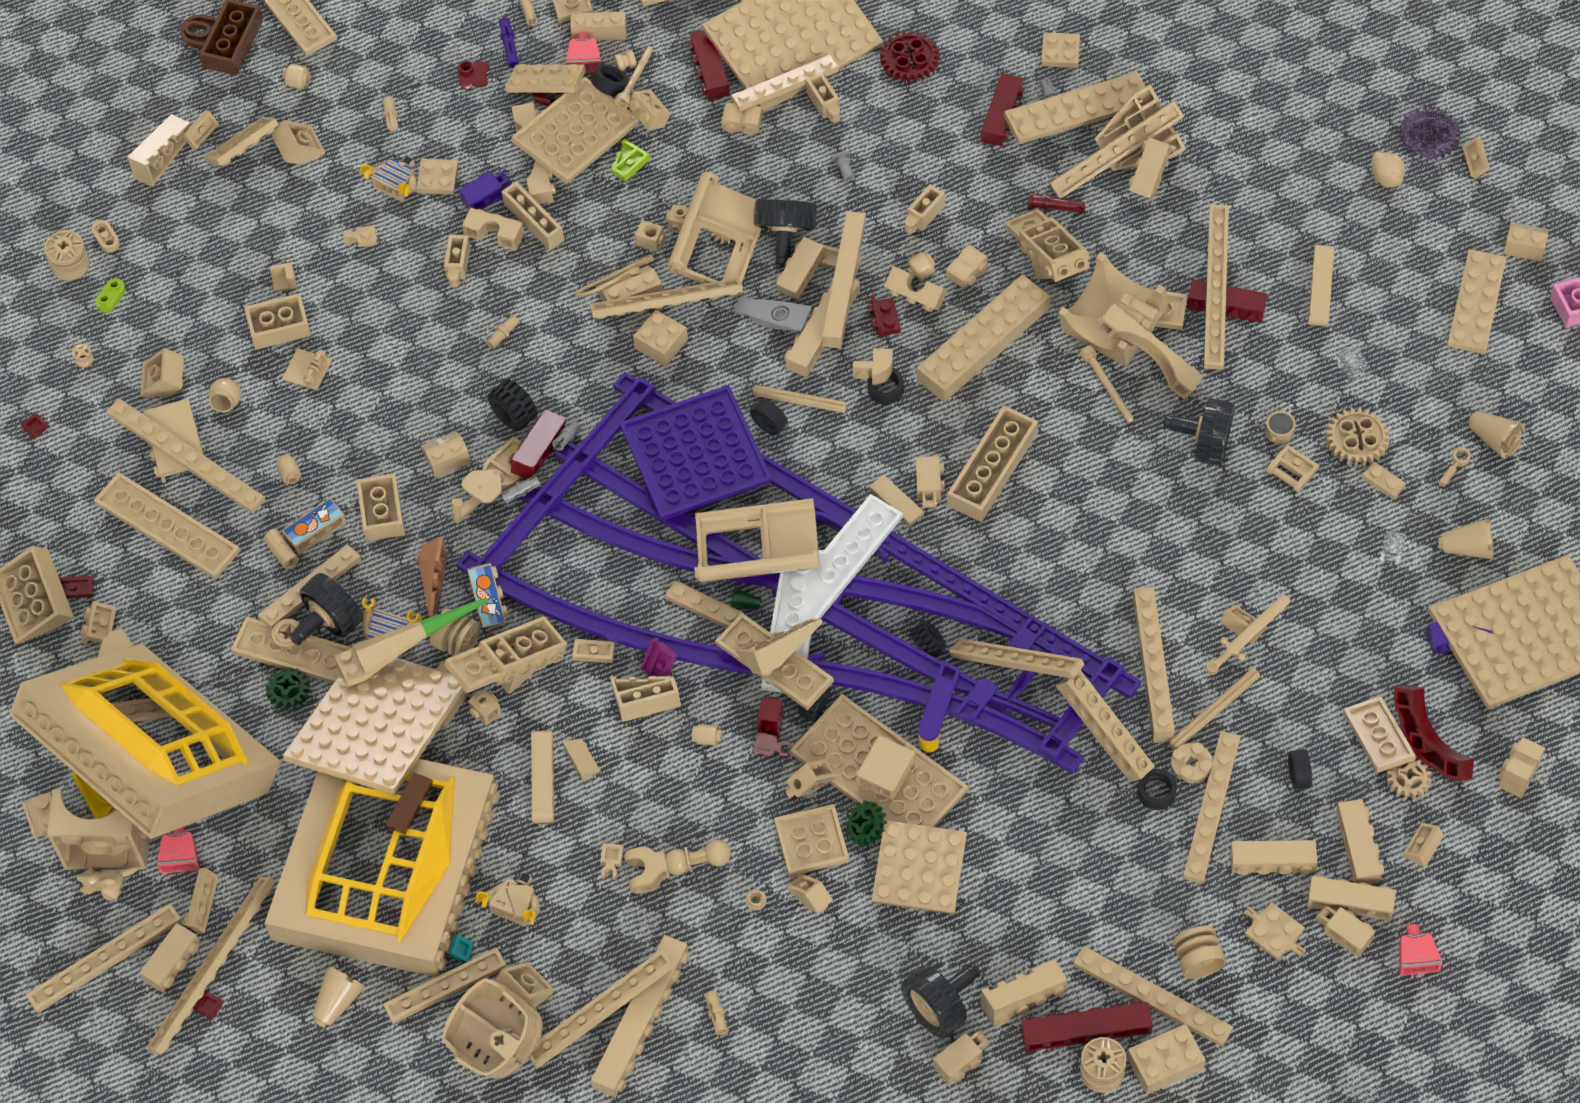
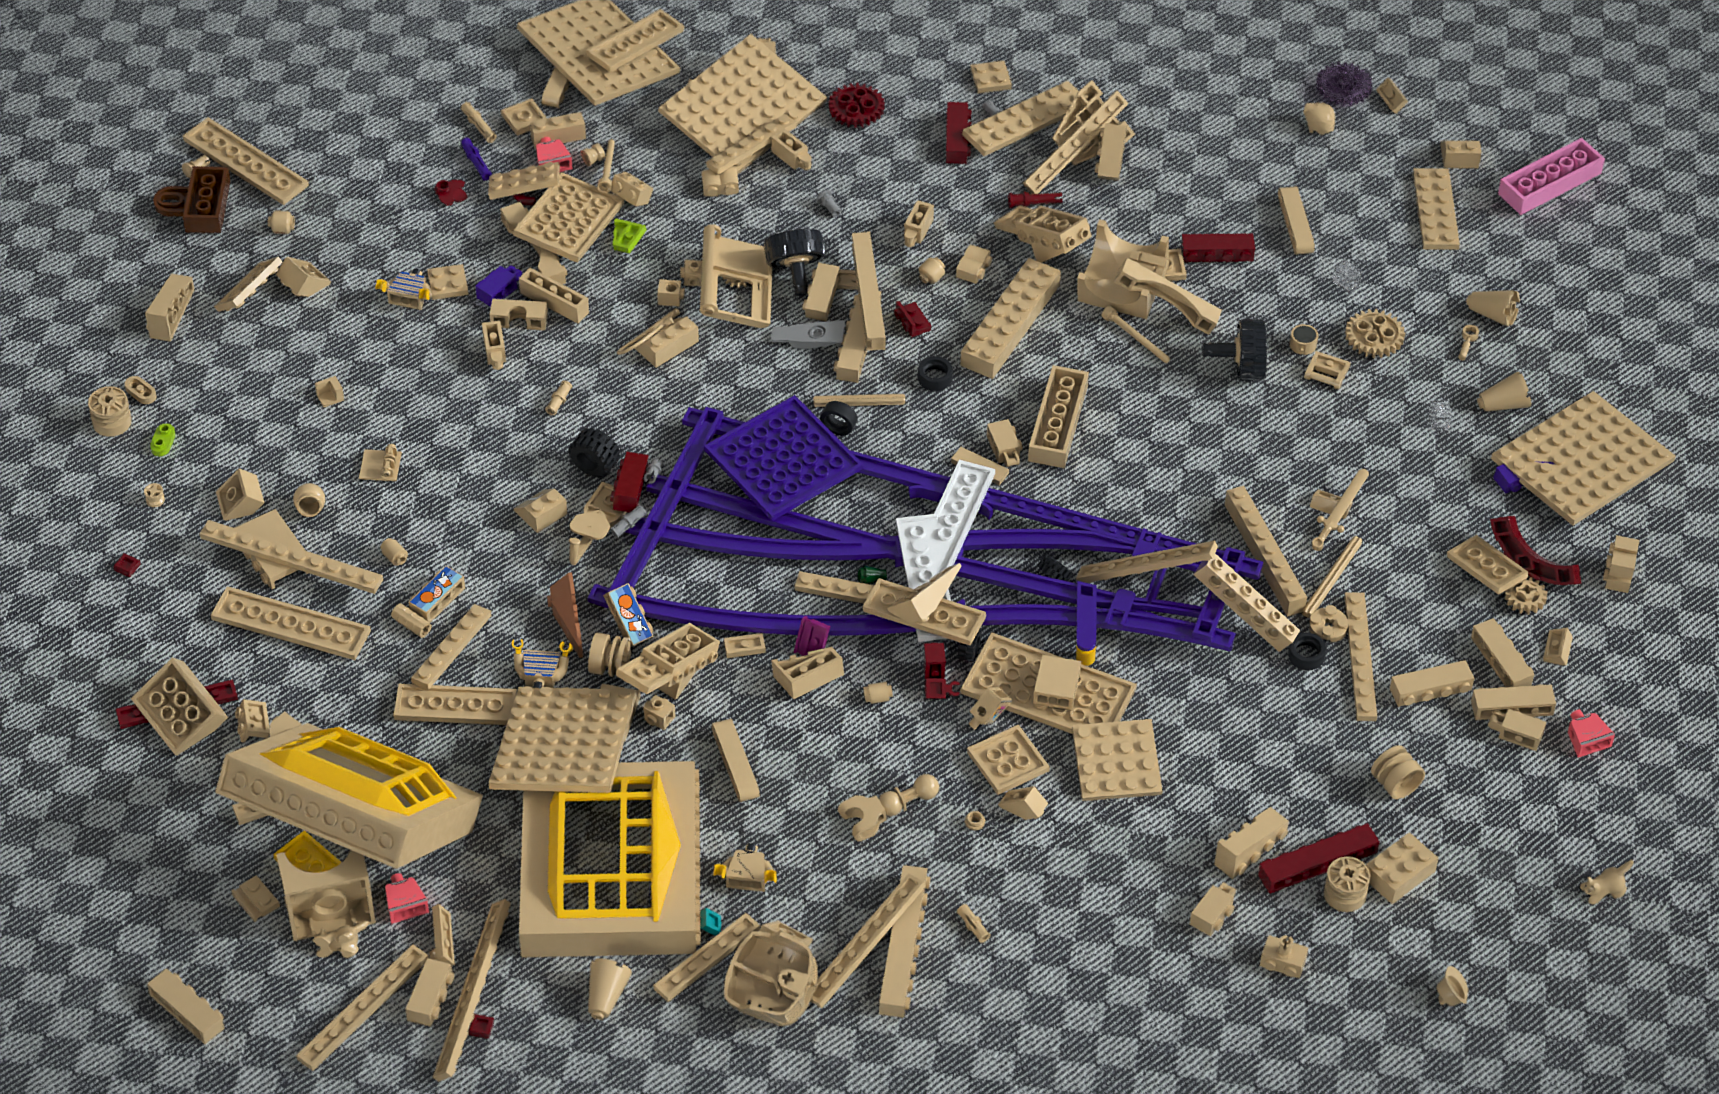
camera: 20 degrees left, 10 degrees down
(200, 129) = (203, 283): tan plate -> none
(277, 321) = (339, 428): tan brick -> none
(282, 628) = (438, 685): tan gear -> none
(285, 686) = (461, 737): dark green gear -> none
(329, 607) = (480, 655): black wheel -> none
(363, 236) = (393, 344): tan plate -> none
(375, 653) = (541, 684): tan plate -> none
(380, 507) = (497, 564): tan brick -> none
(390, 113) = (383, 237): tan axle -> none
(409, 803) = (627, 796): reddish brown tile -> none
(581, 758) = (765, 738): tan slope -> none
(609, 80) = (585, 171): black tyre -> none
(610, 858) = (826, 815): tan plate -> none
(660, 337) = (711, 374): tan brick -> none
(668, 297) = (713, 335): tan plate -> none
(710, 66) = (673, 144): dark red brick -> none
(786, 539) = (893, 506): tan piece -> none
(864, 824) = (1054, 733): dark green gear -> none
(878, 369) = (925, 357): tan brick -> none
(900, 283) = (949, 293): tan arch -> none
(936, 999) = (1178, 860): black wheel -> none
(1157, 997) = (1379, 823): tan plate -> none
(1216, 287) = (1207, 235): tan plate -> none
(1274, 931) = (1455, 744): tan plate -> none
(1300, 769) = (1429, 606): black tyre -> none
(1383, 480) = (1410, 365): tan plate -> none

